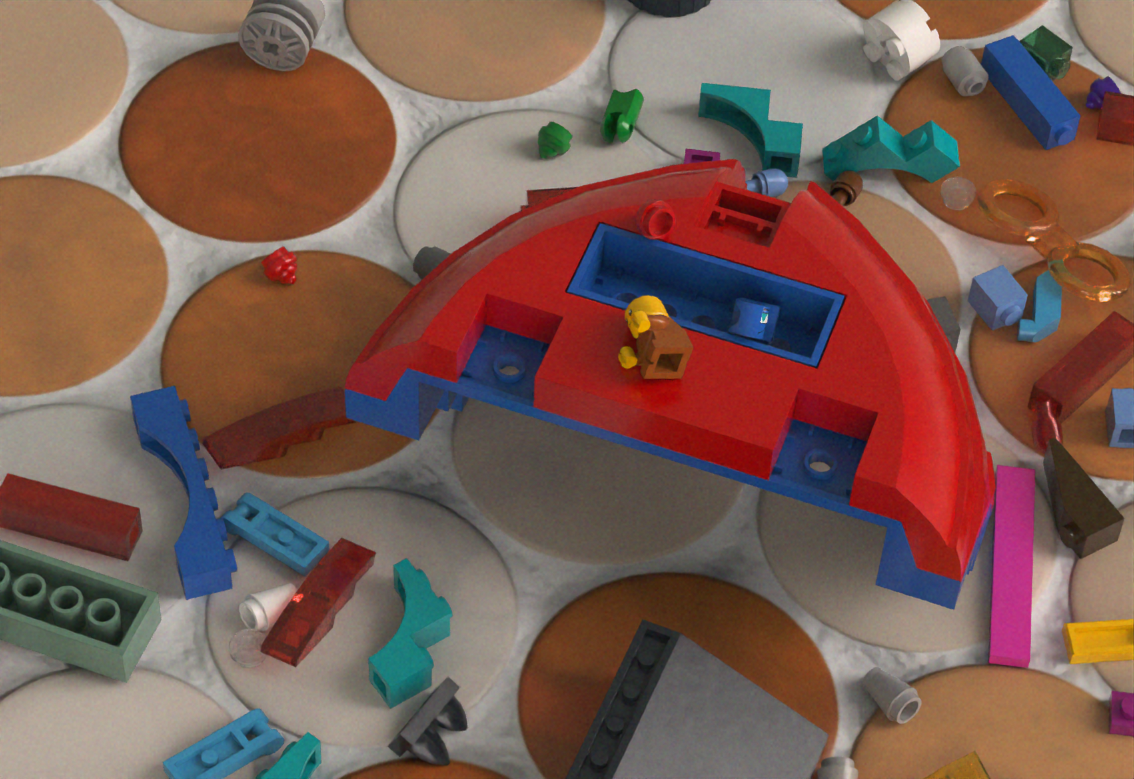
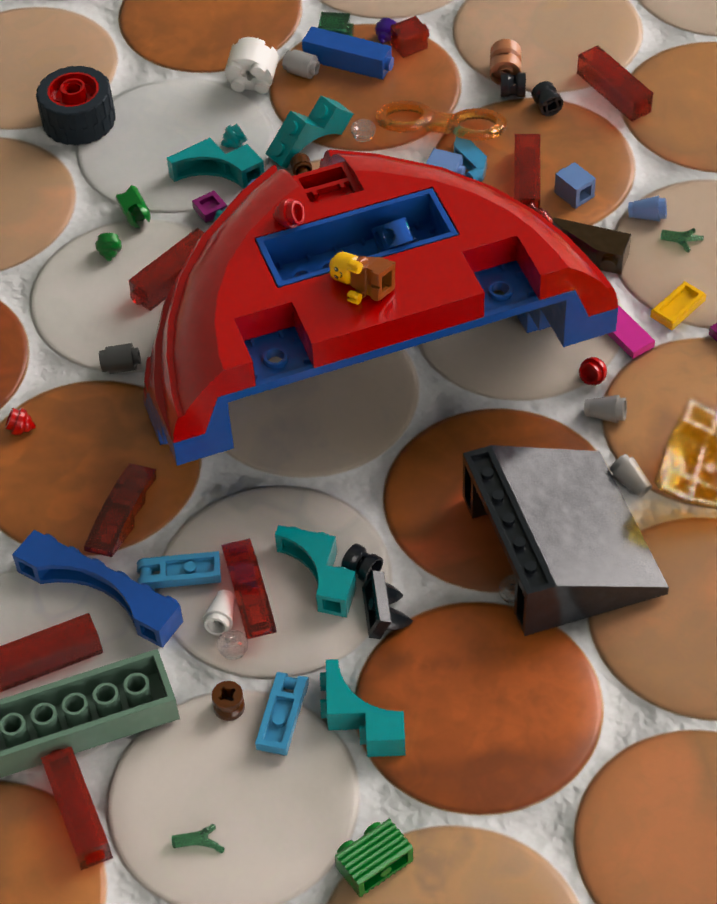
camera: 35 degrees left, 0 degrees up
(192, 707) = (226, 708): none -> reddish brown wheel
(454, 659) = (361, 562): none -> black wheel
(807, 107) = (233, 137): none -> teal plate
(921, 642) = (593, 371): none -> red plate

